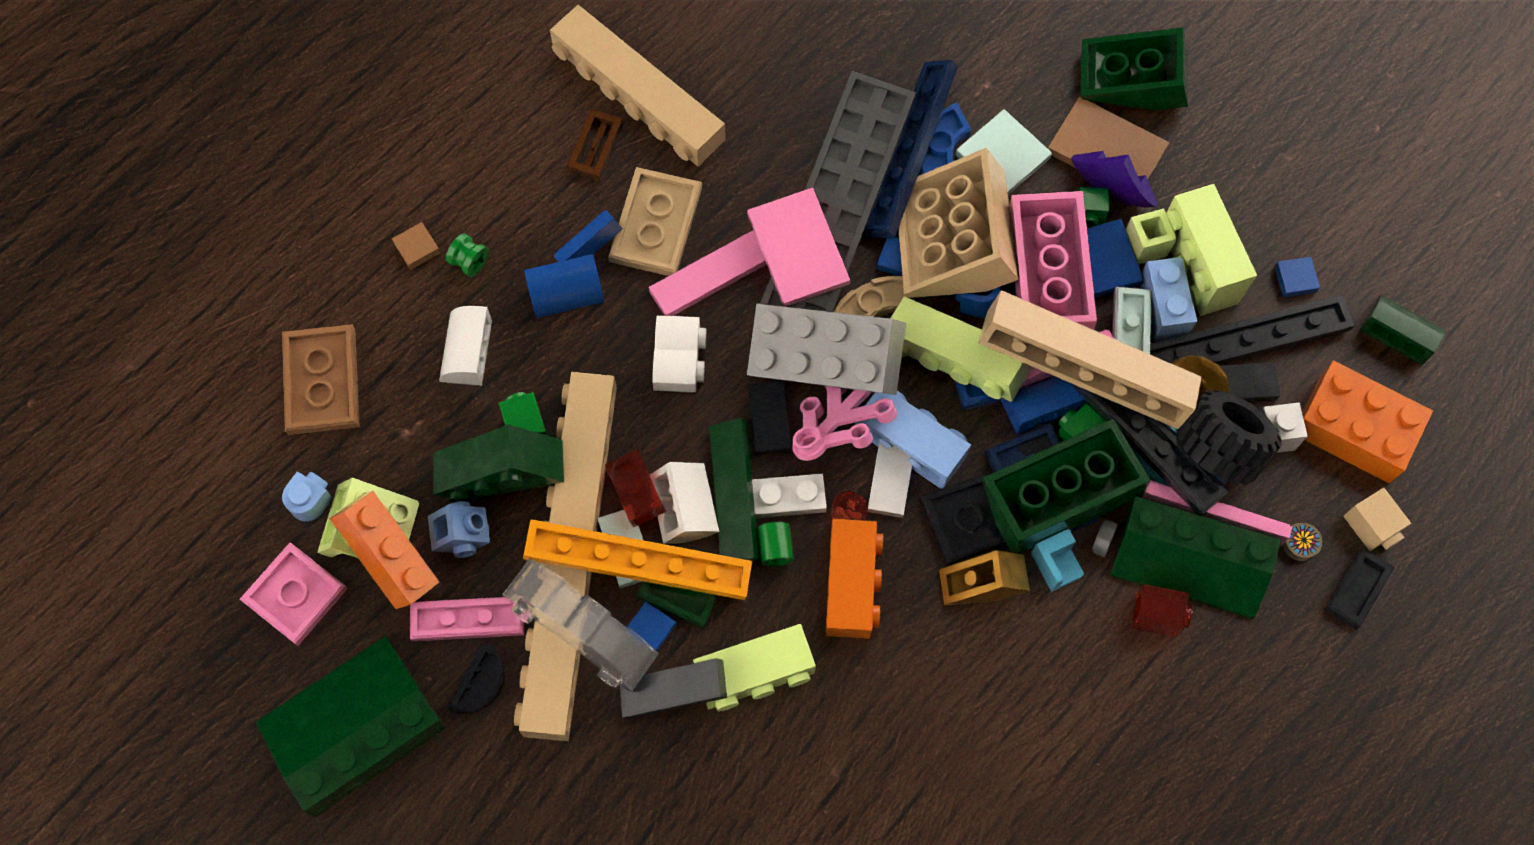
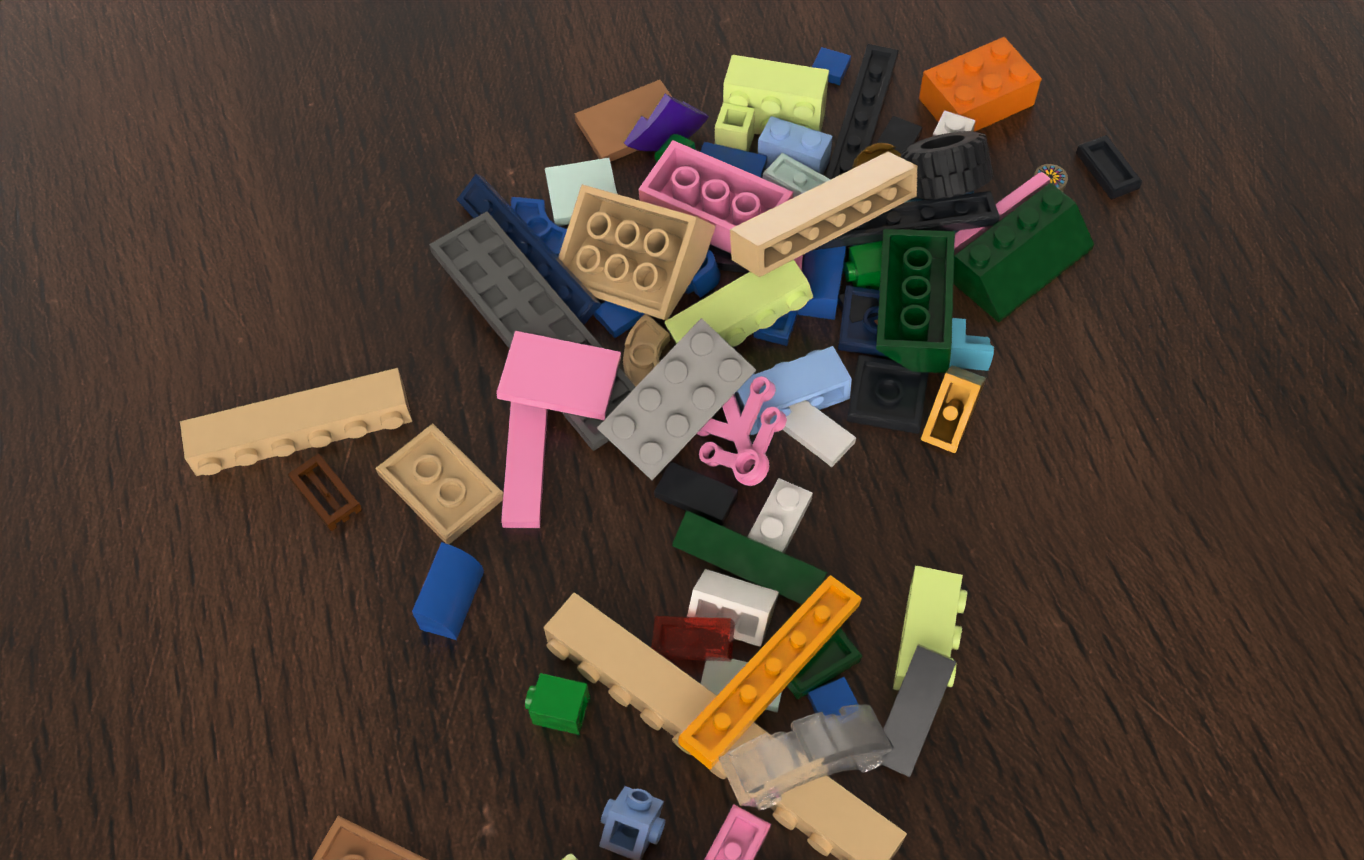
camera: 55 degrees left, 10 degrees down
(416, 246) = (300, 708): medium nougat tile -> none
(466, 345) = (440, 717): white brick -> none
(467, 255) = (349, 662): green wheel -> none
(497, 464) = (592, 749): dark green wedge -> none
(590, 238) = (420, 541): blue tile -> none
(677, 354) = (585, 532): white brick -> none
(775, 544) = (821, 551): green gear -> none
(849, 506) = (823, 478): clear red tile -> none
(853, 579) = (892, 507): orange brick -> none
(1105, 538) = (970, 302): dark grey tile -> none
(1136, 69) = (585, 61): dark green slope -> none
(1161, 611) = (1055, 299): clear red brick -> none
(1378, 520) = (1064, 122): tan brick -> none
(1402, 330) = (920, 27): dark green brick -> none

